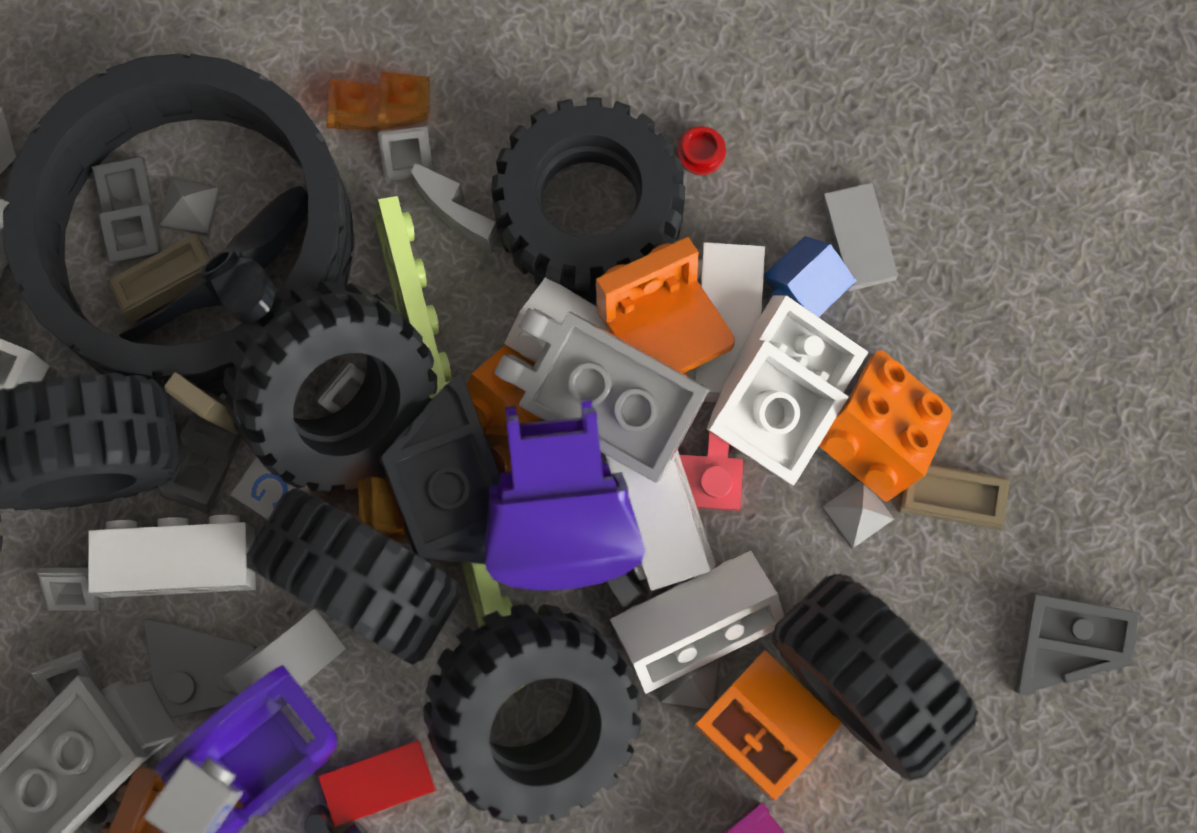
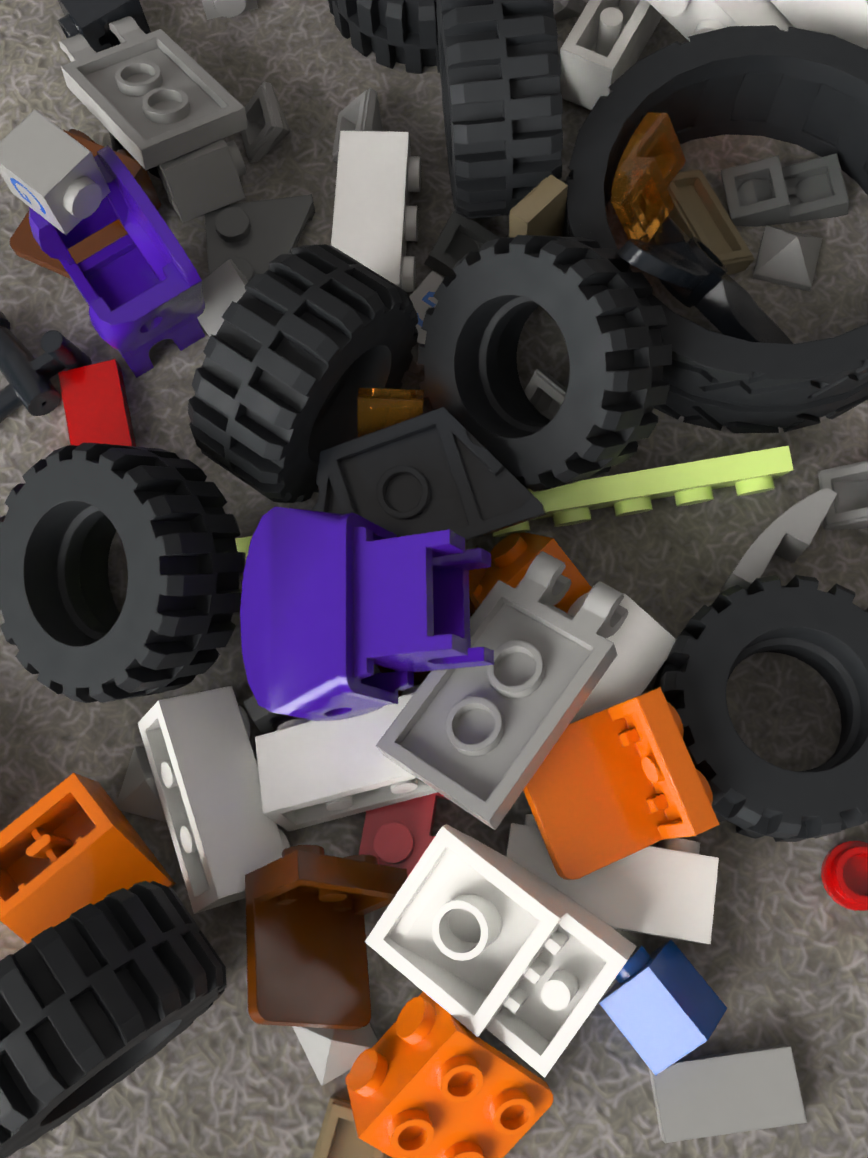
camera: 100 degrees right, 5 degrees down
(160, 318) = (643, 176): none -> clear orange slope
(792, 529) = (310, 937): none -> reddish brown bracket

